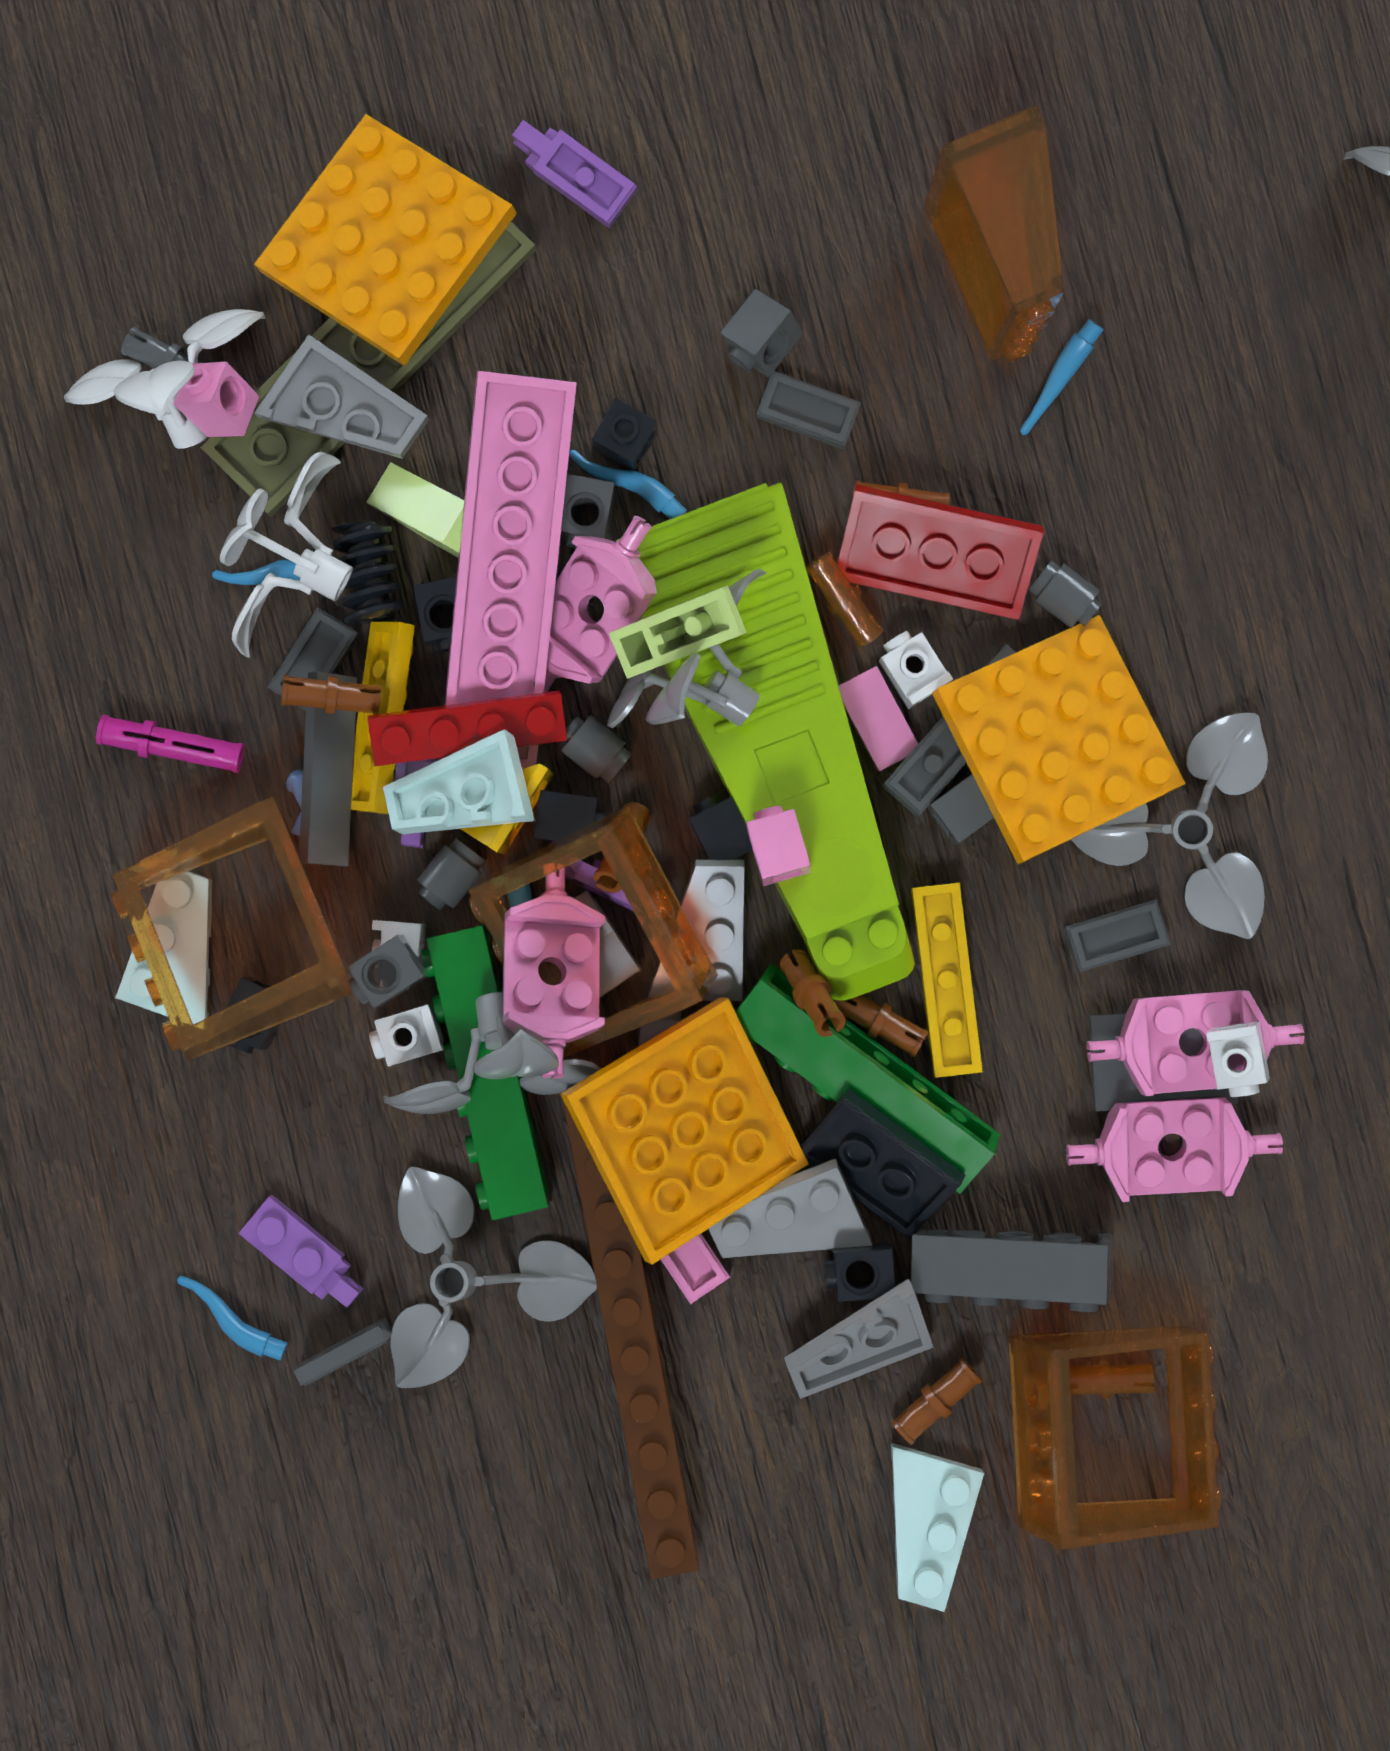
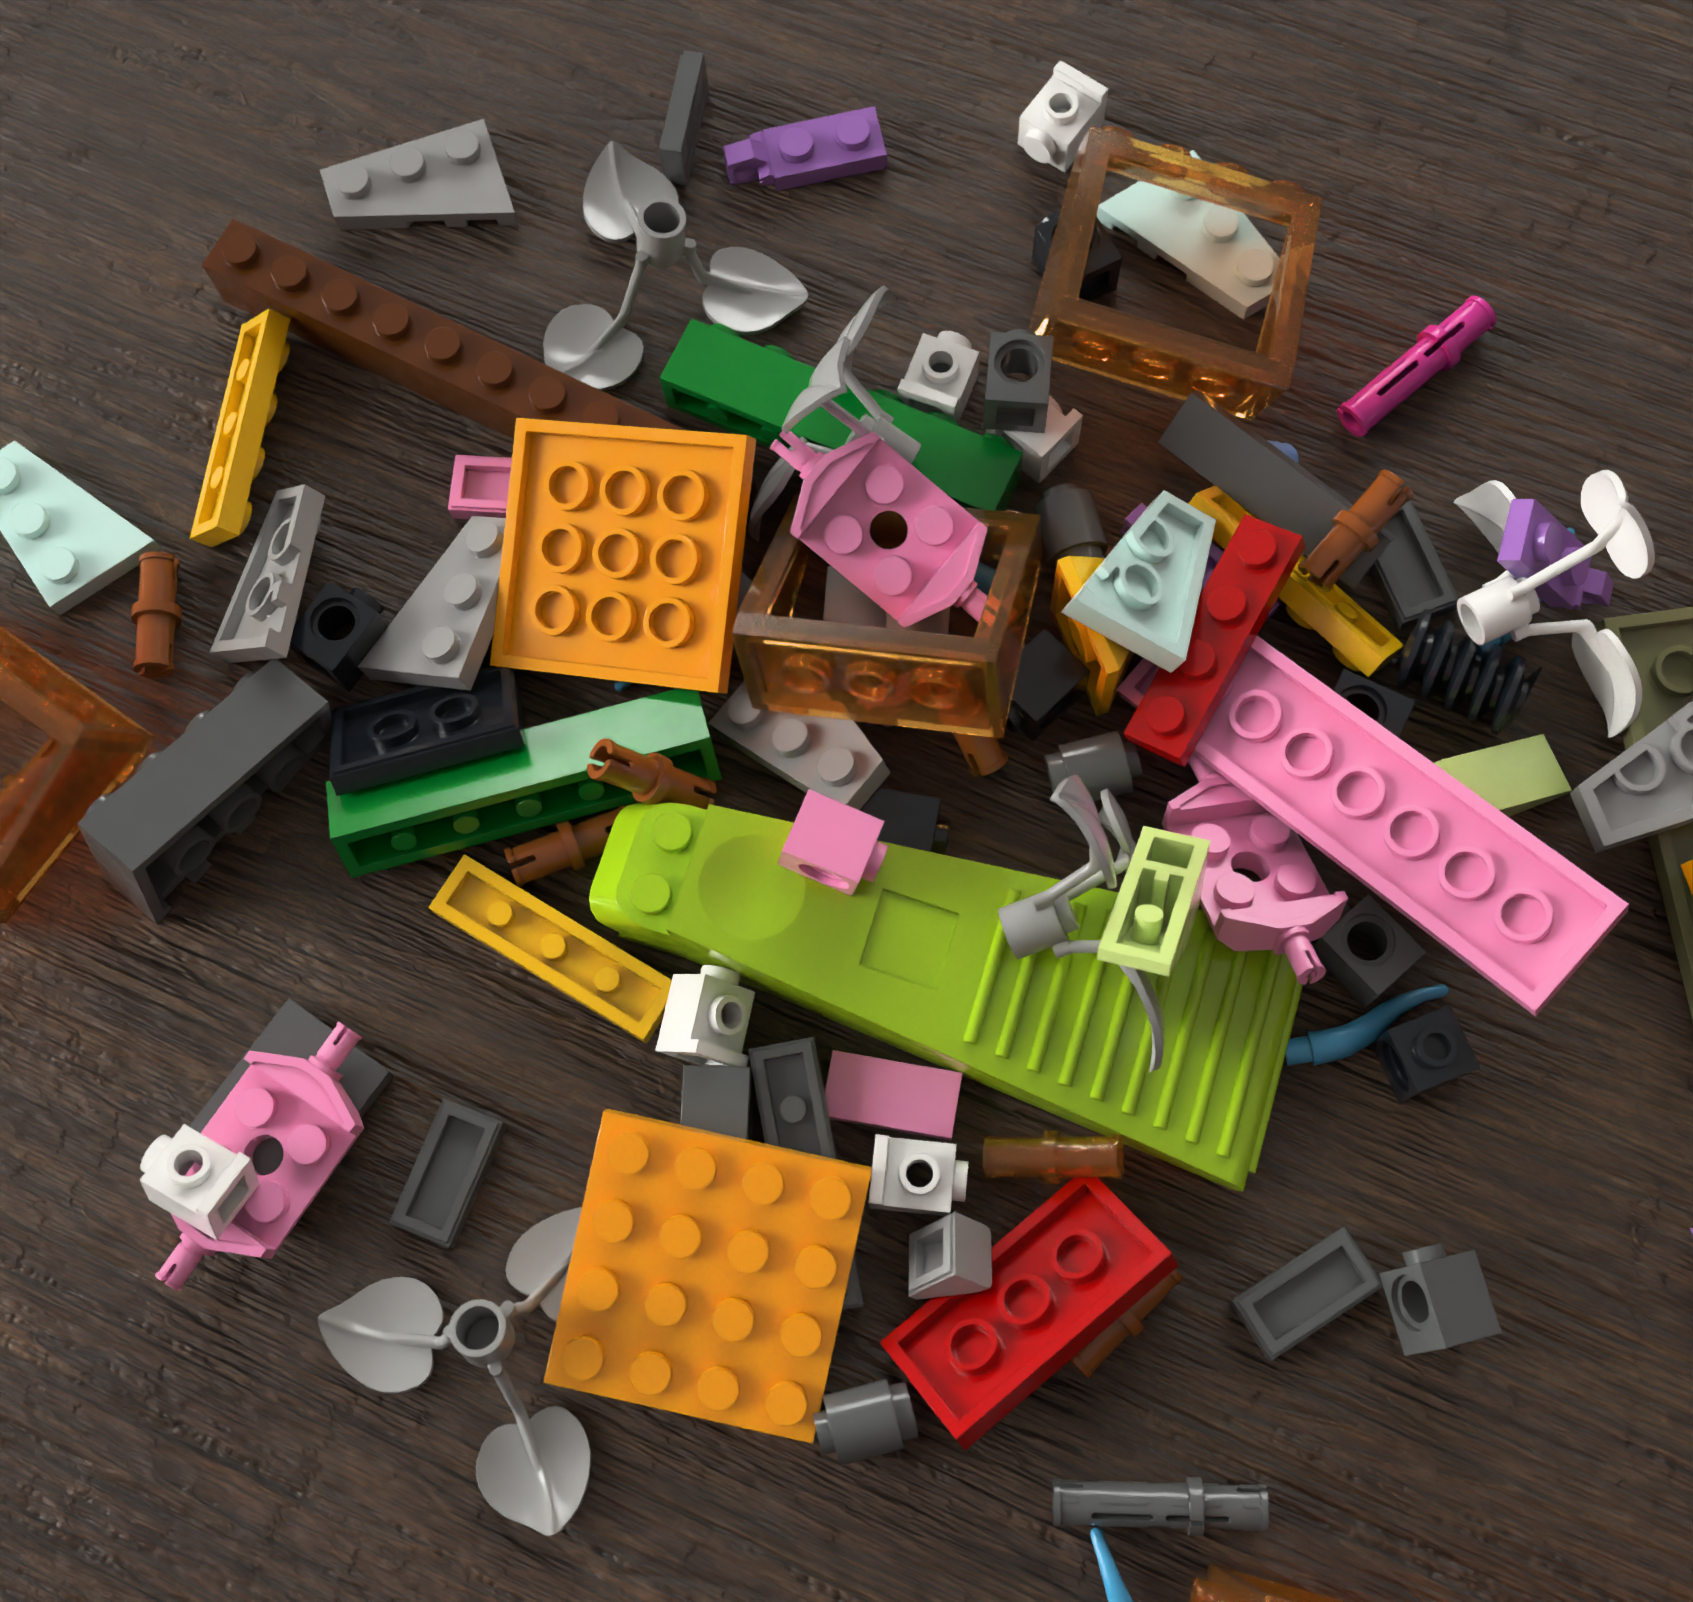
camera: 135 degrees right, 15 degrees down
(137, 1100) = (1062, 116): none -> white brick
(242, 1334) = (785, 49): dark azure animal -> none
(266, 572) = (1537, 540): none -> medium lavender hinge
(517, 1493) = (427, 179): none -> light grey wing
(778, 1456) = (245, 412): none -> yellow plate
(921, 854) = (706, 1018): none -> white brick
(944, 615) = (950, 1258): none -> light grey slope
(978, 399) = (1170, 1505): none -> dark grey pin
(1211, 1152) = (138, 1083): bright pink plate -> none

